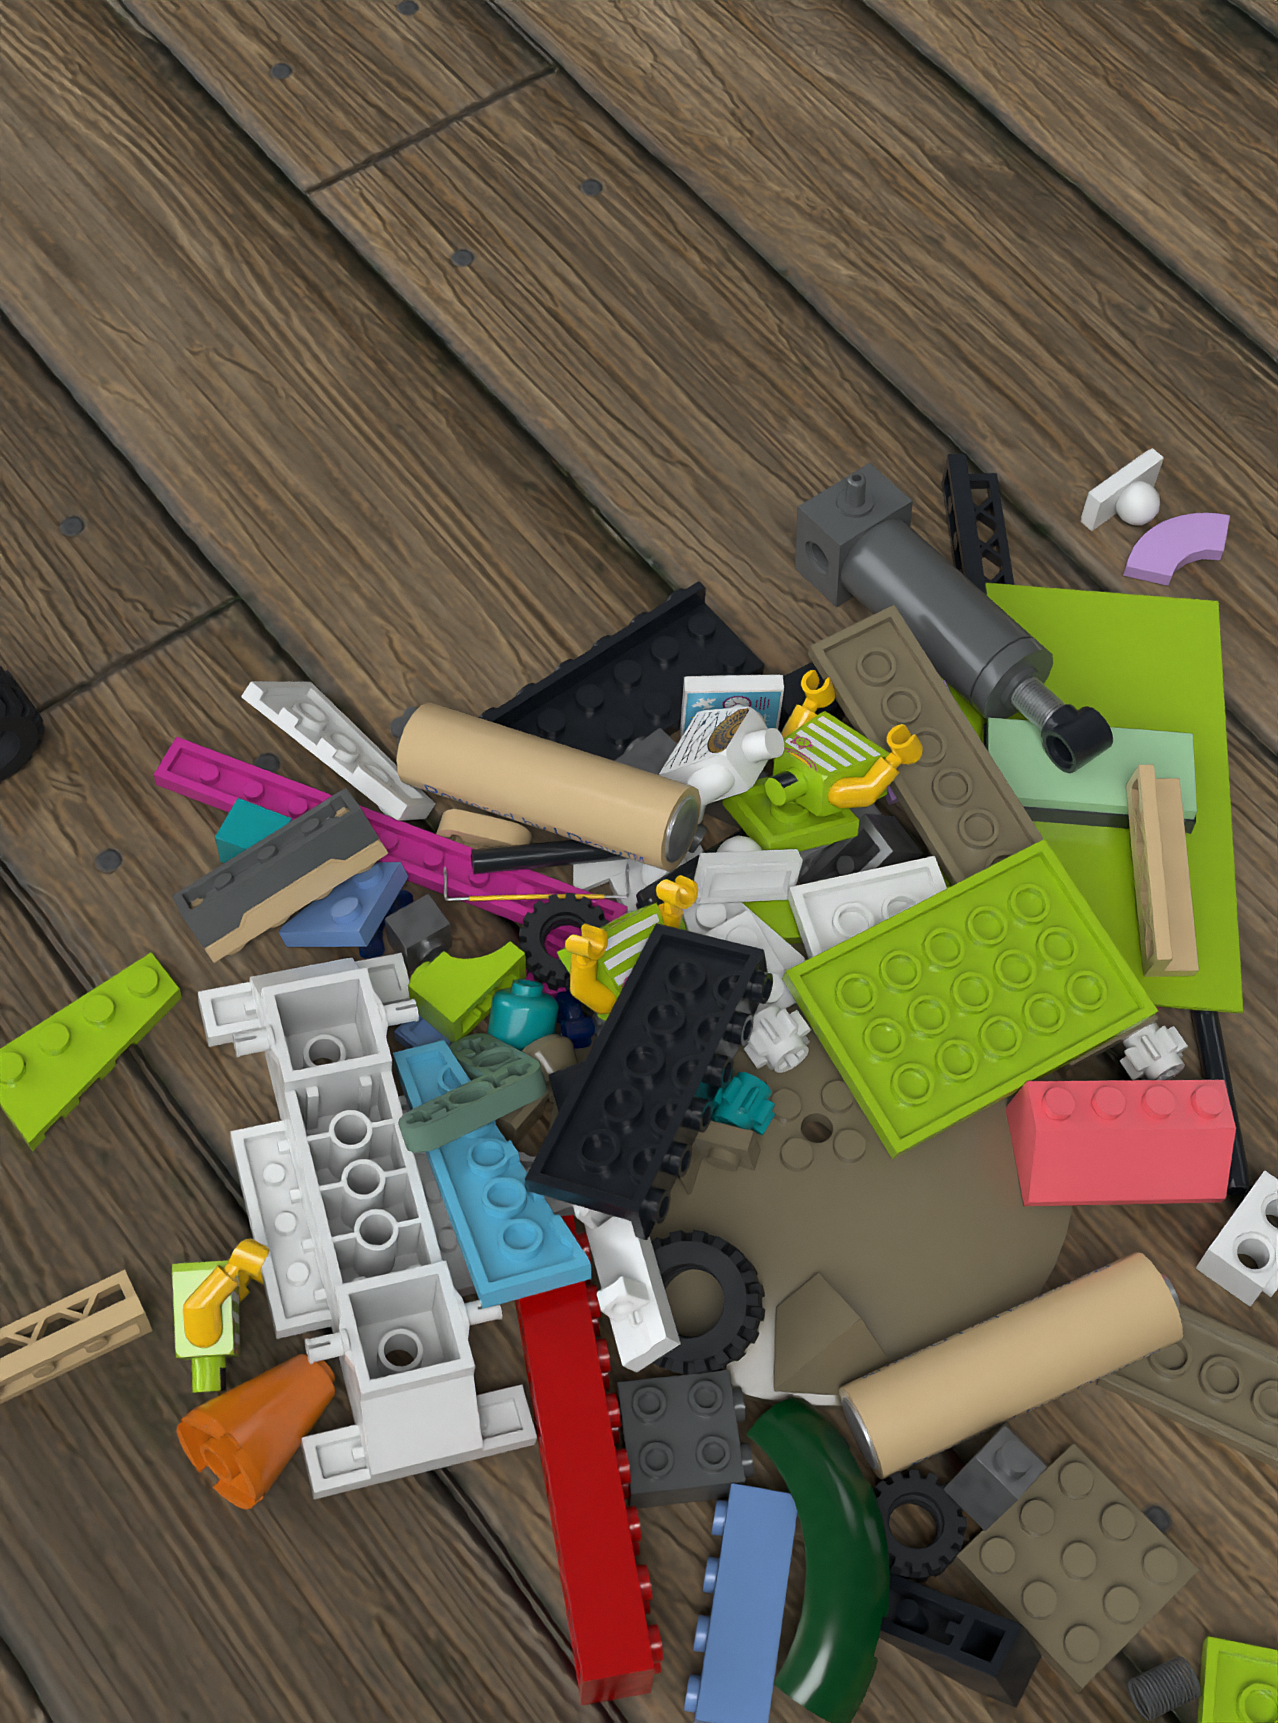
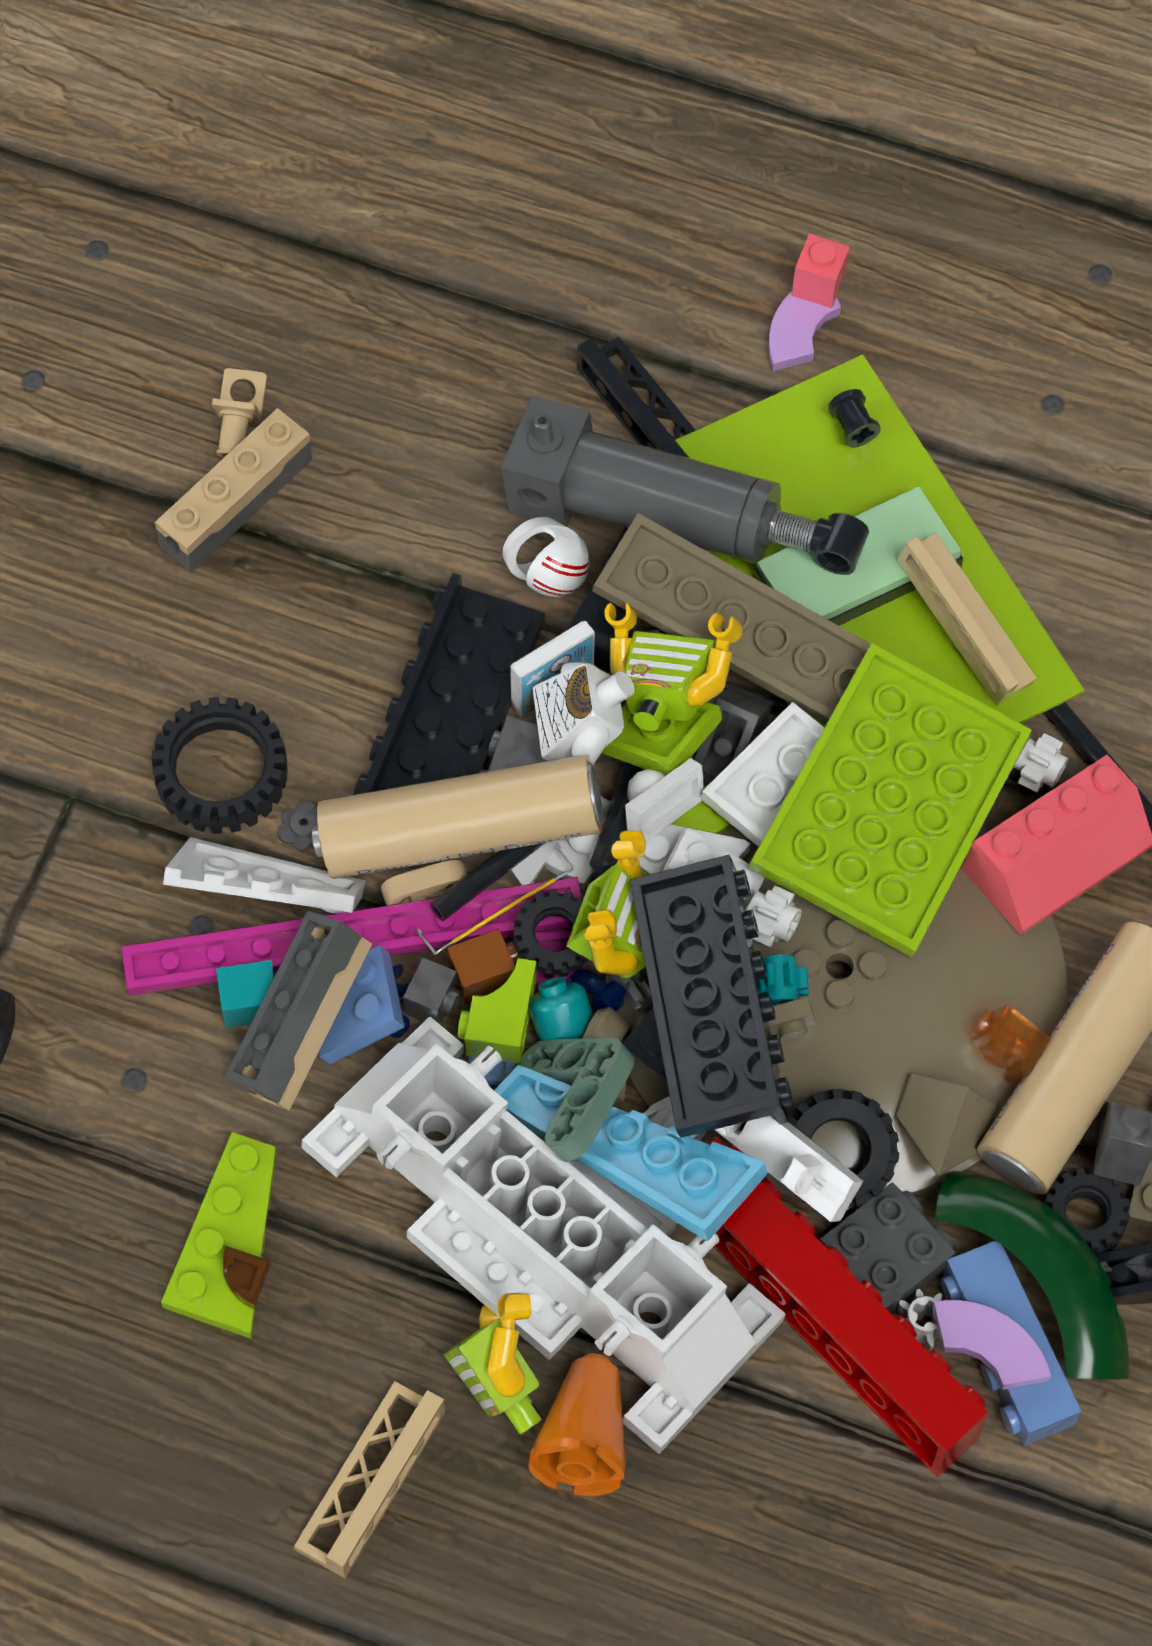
camera: 30 degrees left, 5 degrees up
(61, 1086) = (244, 1275): none -> reddish brown tile
(377, 591) = (207, 719): none -> black tyre
(480, 929) = (482, 964): none -> dark orange brick
(559, 419) = (234, 490): none -> tan piece
(610, 362) = (237, 414): none -> tan bracket
(678, 1517) = (918, 1309): none -> white gear
(720, 1593) = (993, 1340): none -> lavender tile
(797, 621) = (558, 567): none -> white helmet
(939, 1299) = (1008, 1041): none -> clear orange brick
(1126, 493) = (737, 299): white tile -> none
(1169, 650) = (854, 418): none -> black bush
(1221, 505) = (820, 270): none -> coral brick

